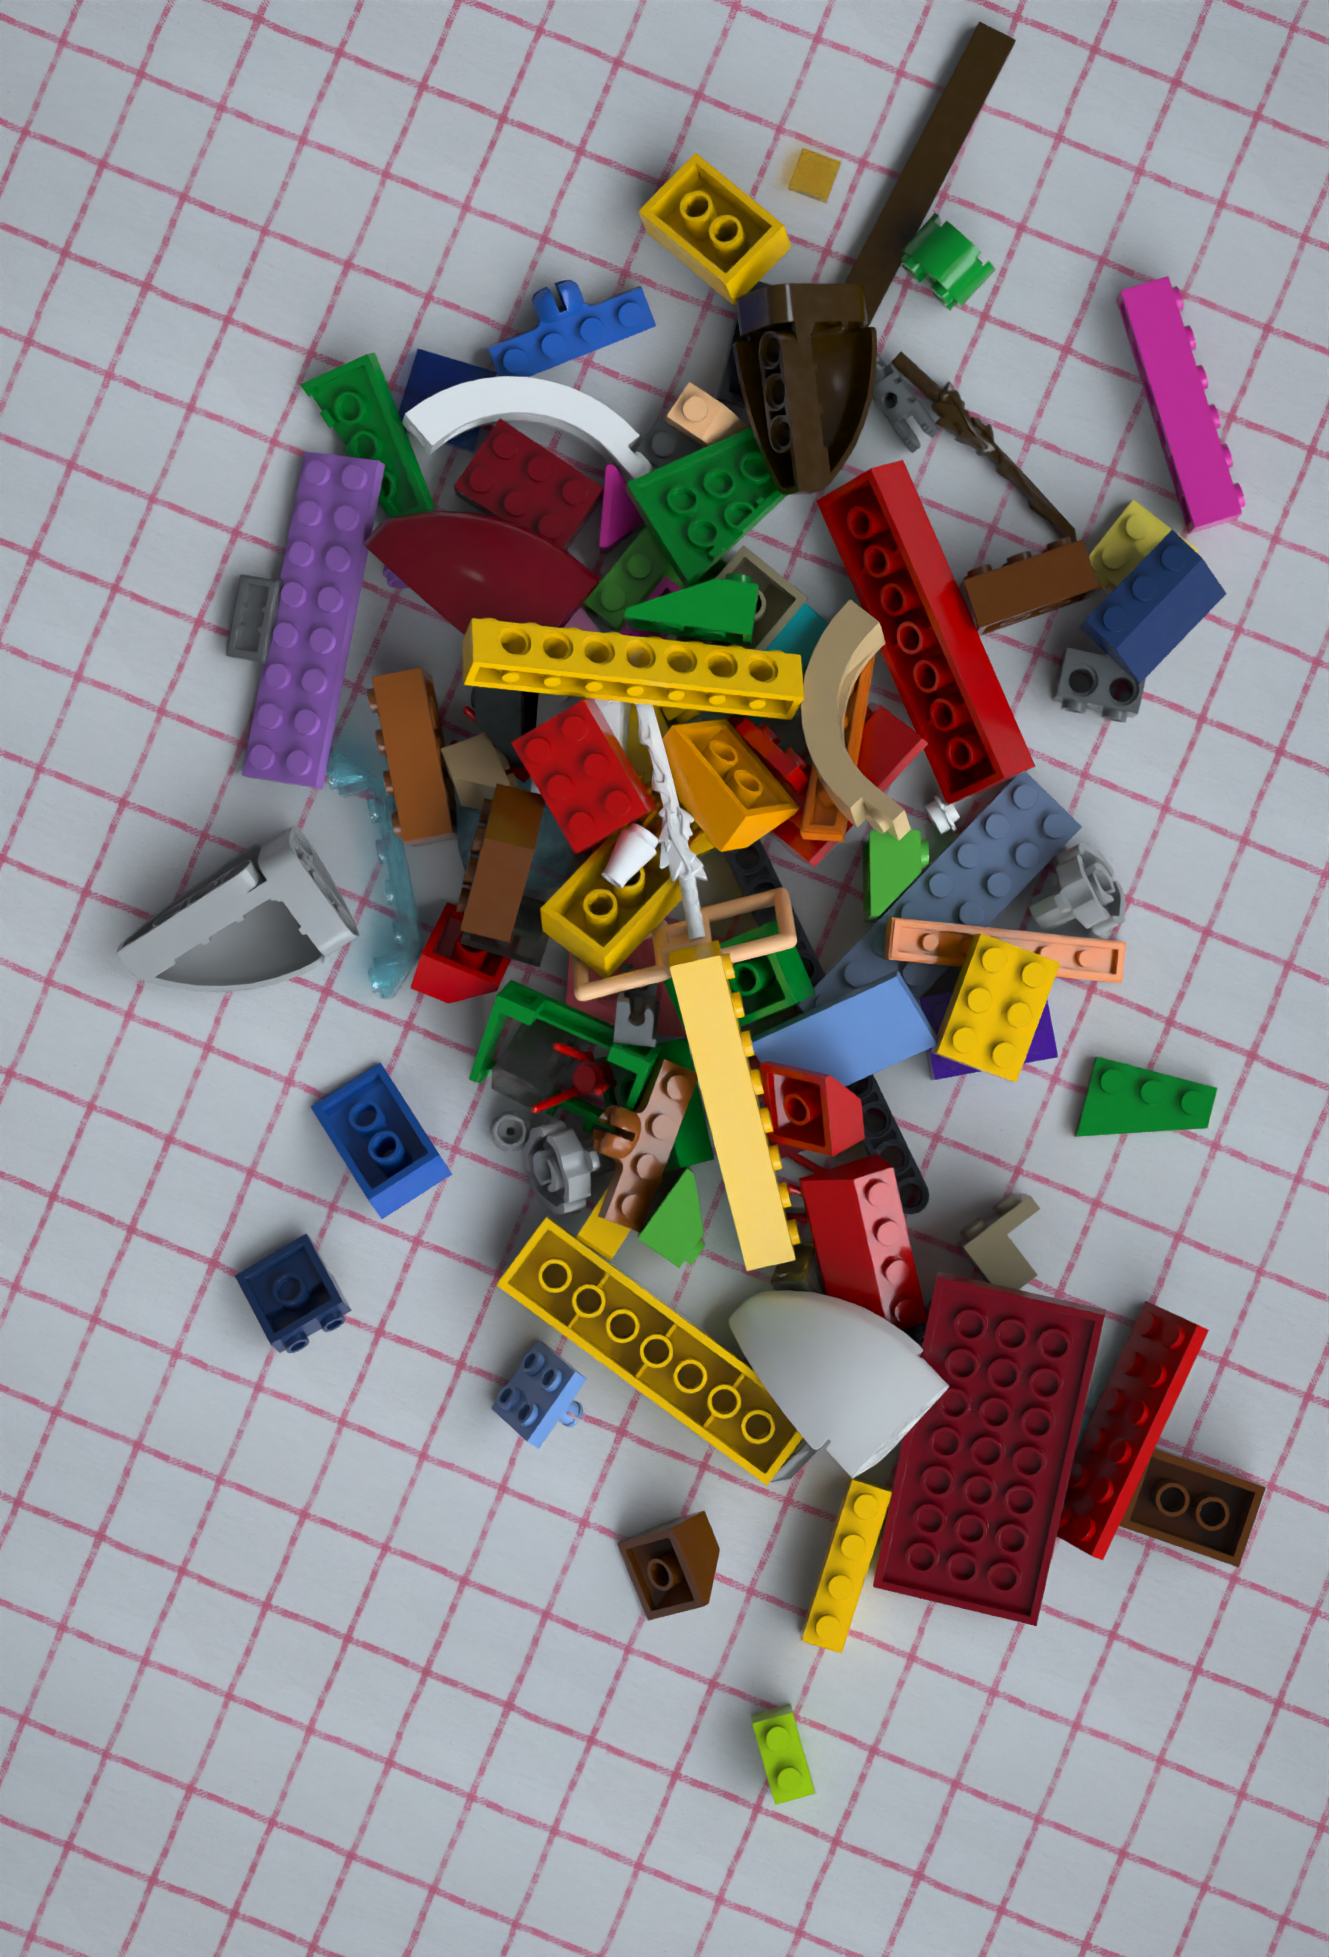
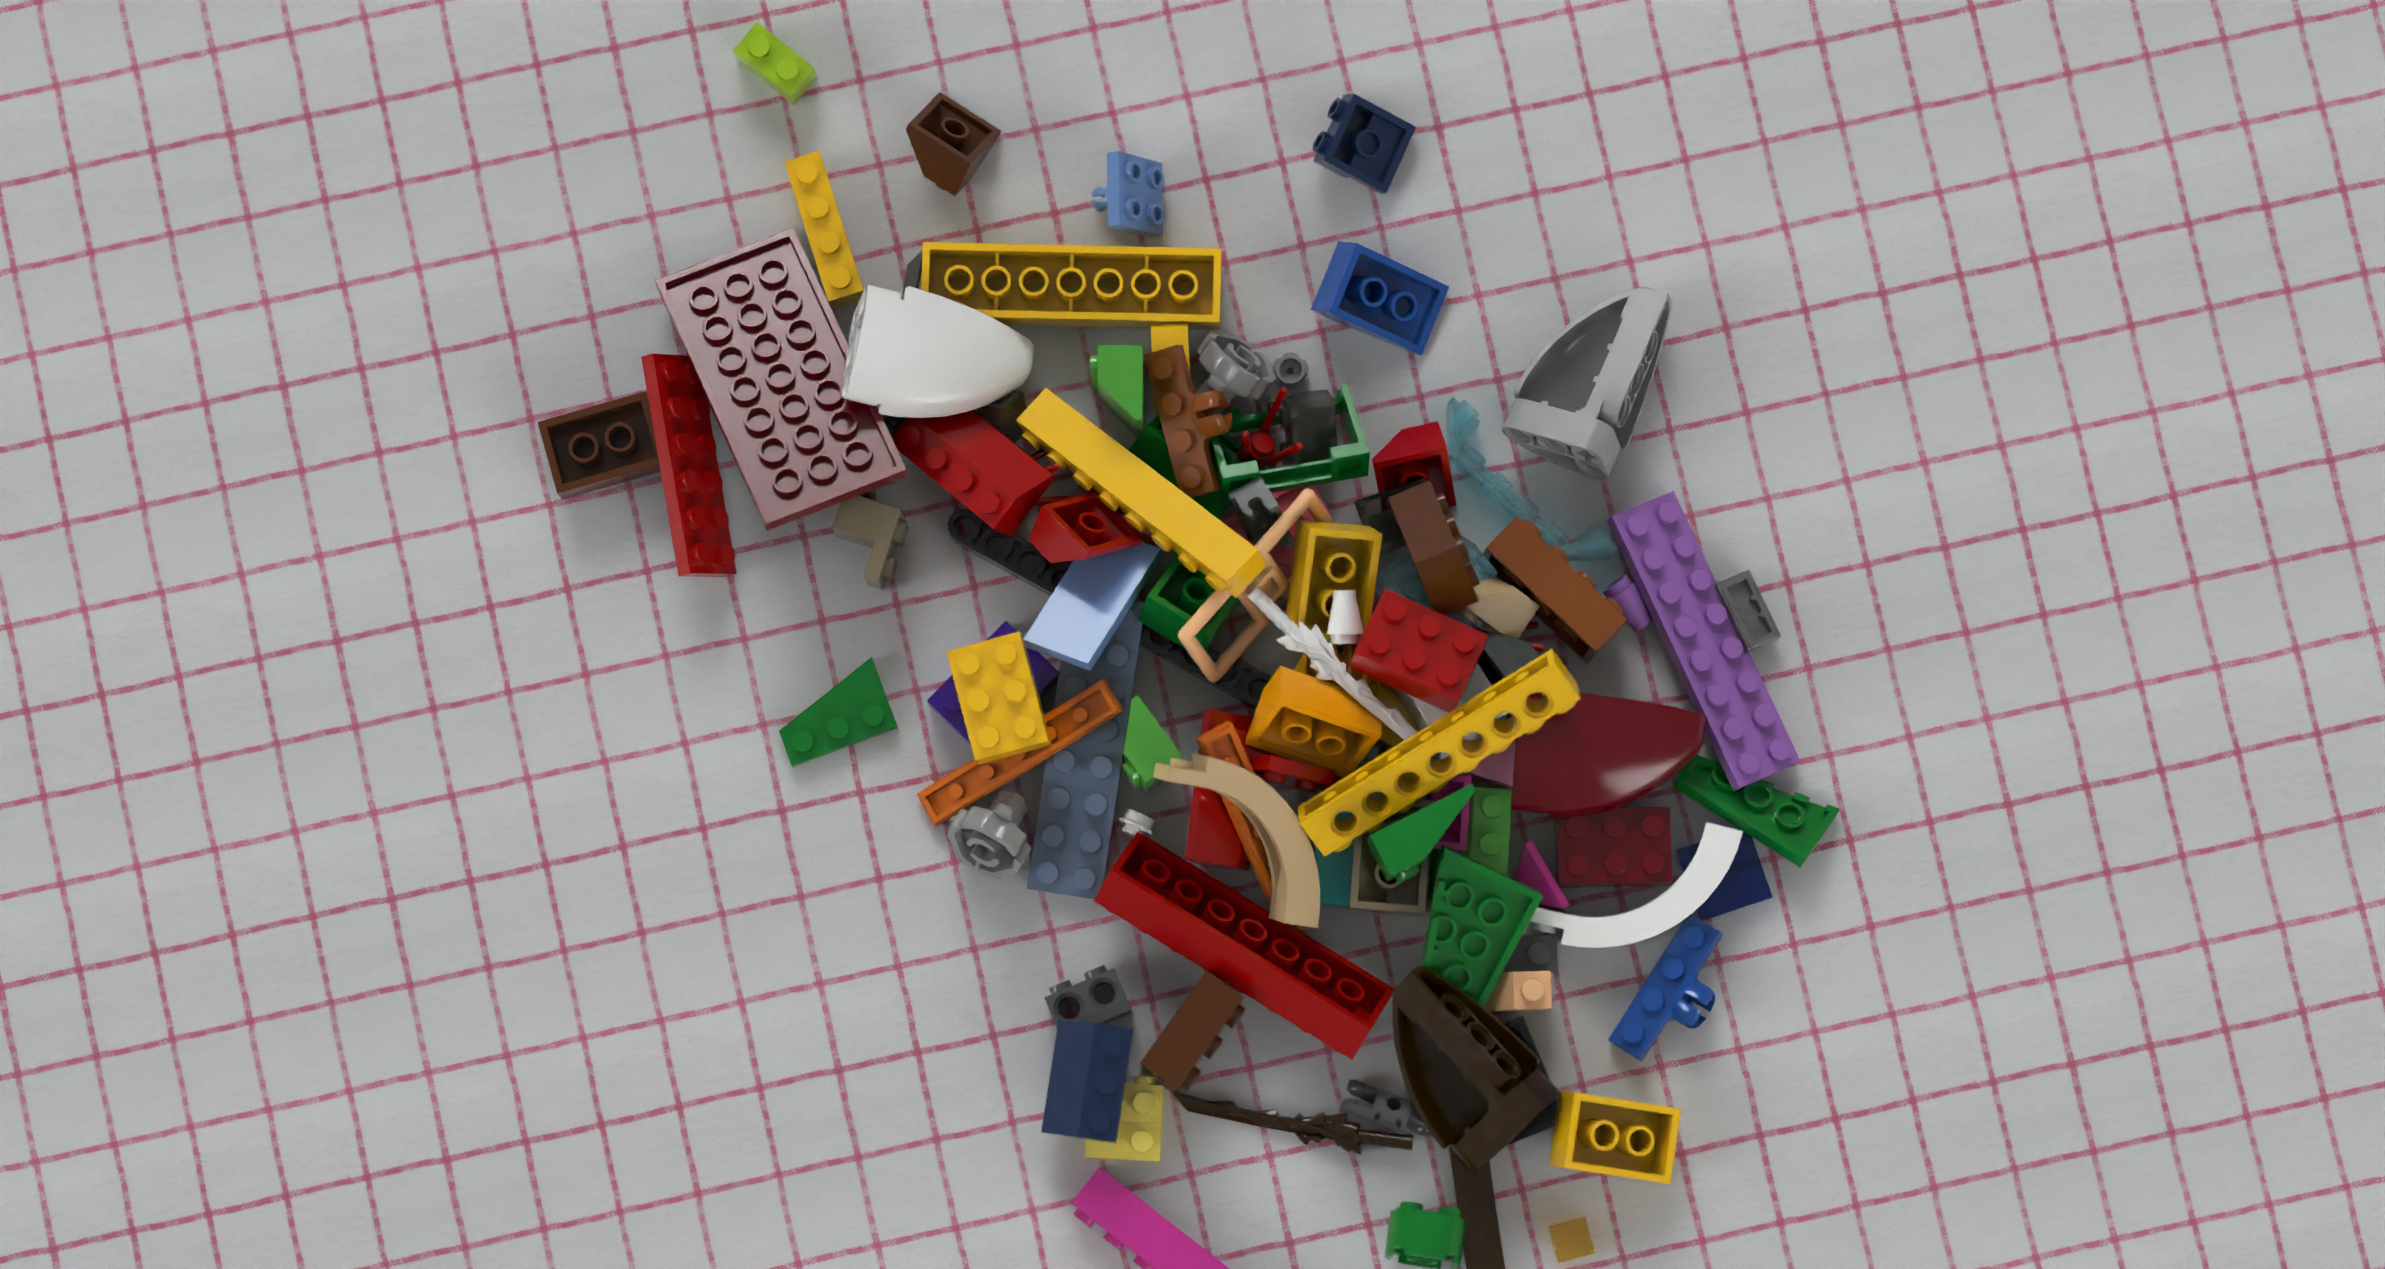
camera: 150 degrees right, 5 degrees down
(354, 707) = (1630, 599): none -> medium lavender cone

